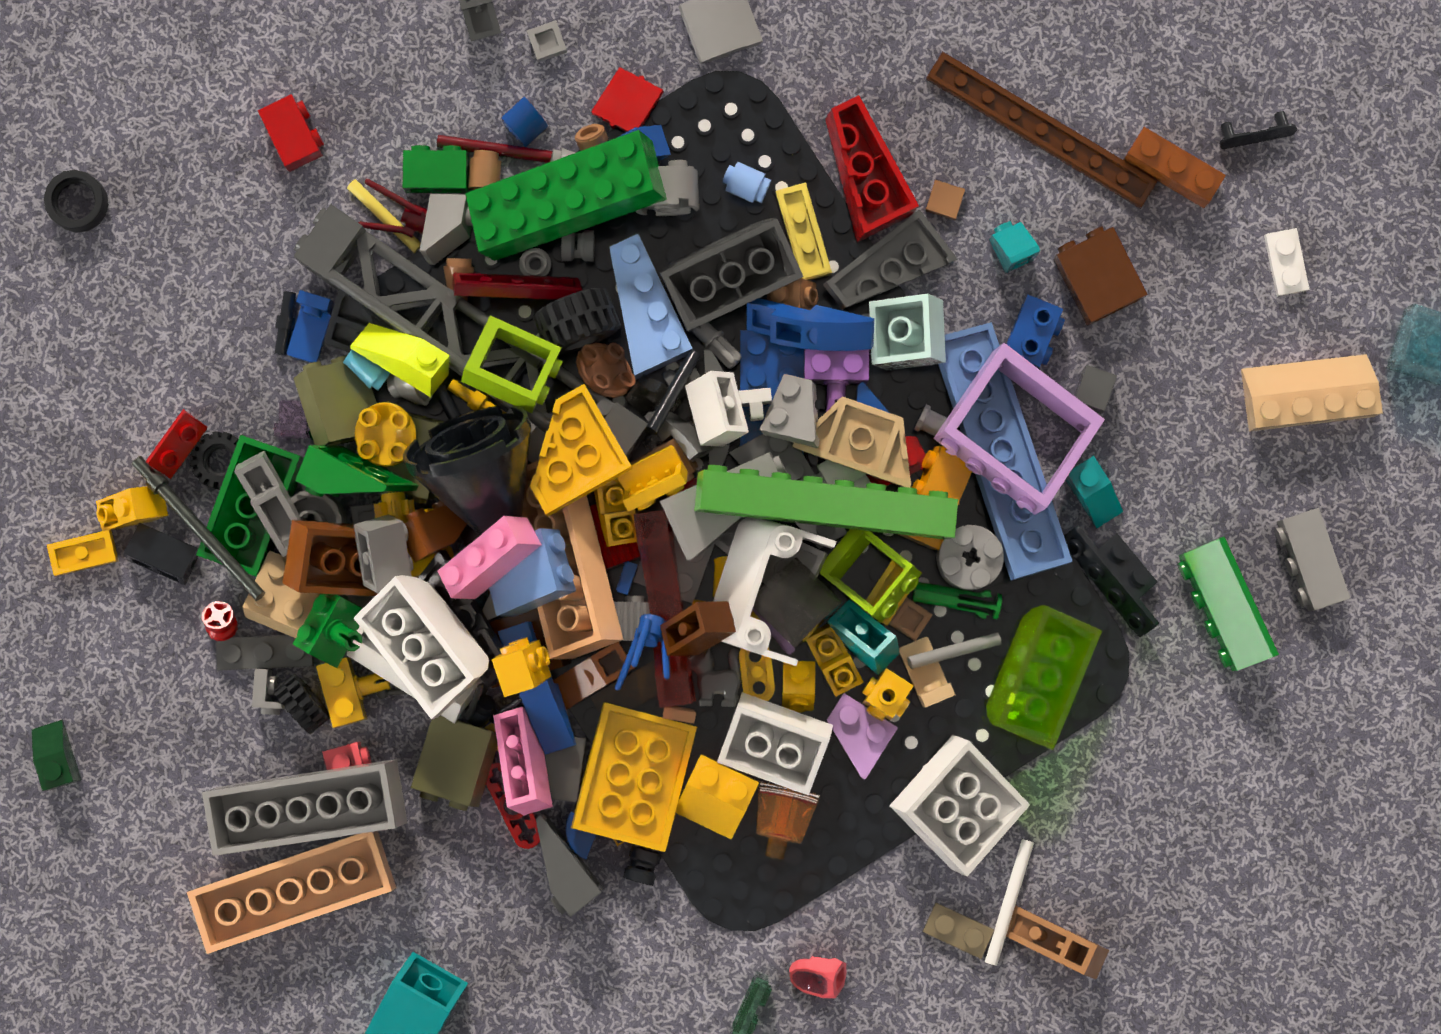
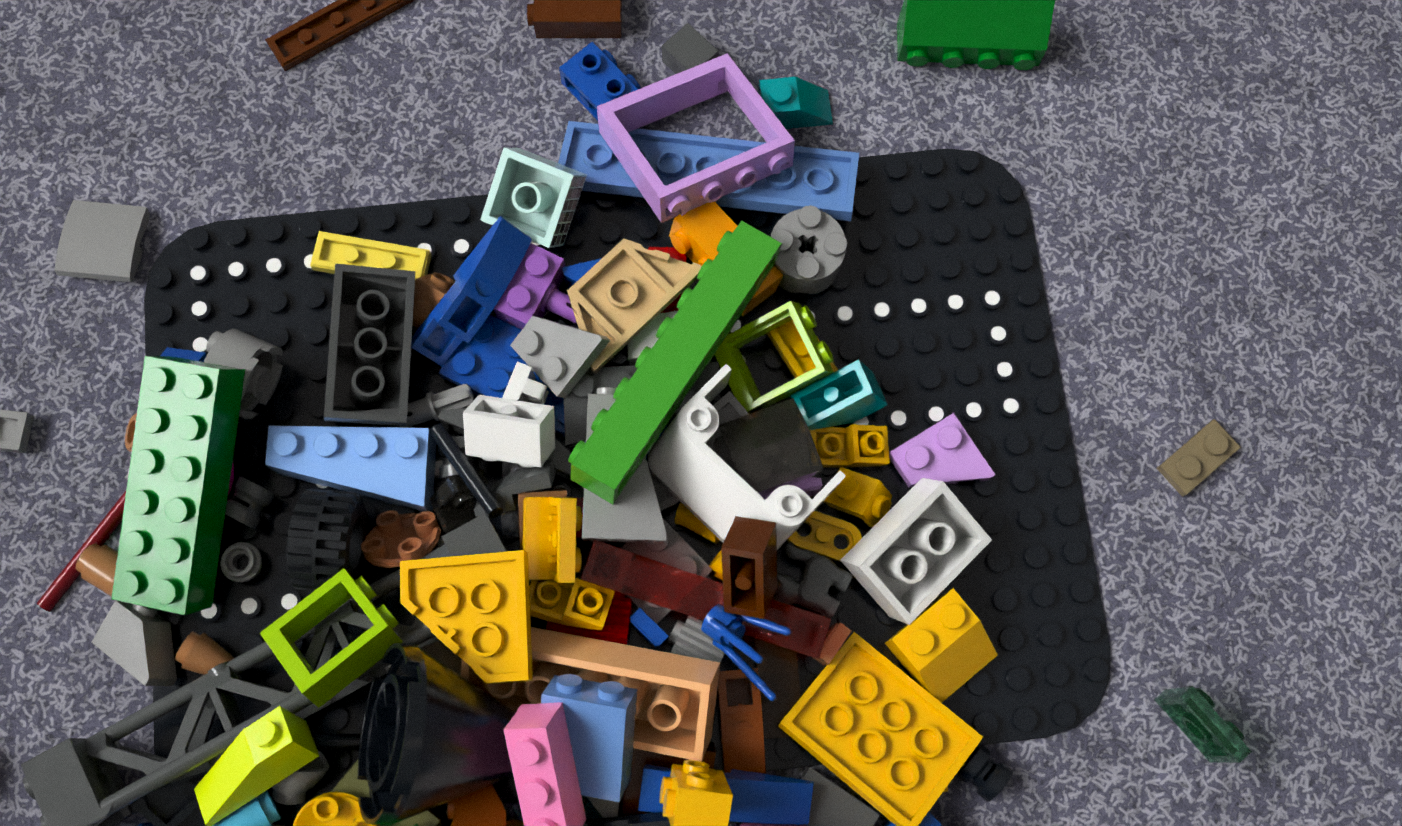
camera: 70 degrees left, 10 degrees down
(382, 213) = (89, 711): light yellow bar -> none
(412, 217) = (105, 675): dark red plant -> none
(435, 170) = (69, 625): green brick -> none
(475, 400) = (354, 708): yellow bar -> none
(514, 286) = (245, 601): dark red tile -> none
(524, 122) = (77, 497): blue brick -> none
(627, 101) = (119, 376): red piece -> none
(746, 182) = (283, 290): light blue brick -> none
(783, 816) = (1000, 583): clear orange torso -> none
(818, 976) = (1191, 631): coral rock -> none
(868, 172) = (341, 162): red wedge -> none
(895, 687) = (915, 405): yellow brick -> none
(897, 258) = (451, 183): dark grey wing -> none
(910, 619) = (843, 344): medium nougat tile -> none
(928, 679) = (910, 355): tan bracket -> none
(930, 421) = (642, 224): light grey bush -> none
(945, 199) = (418, 109): medium nougat tile -> none
(949, 598) = (839, 292): green piece -> none
(954, 650) = (897, 315): light grey bar -> none
(960, 805) = (1068, 386): white slope -> none
(1009, 902) = (1190, 390): white bar -> none
(1013, 246) = (502, 59): teal slope -> none
(1041, 675) = (966, 235): clear neon green windscreen -> none
(1057, 943) = (1253, 362): medium nougat slope -> none
(1117, 575) = (895, 124): black bracket -> none

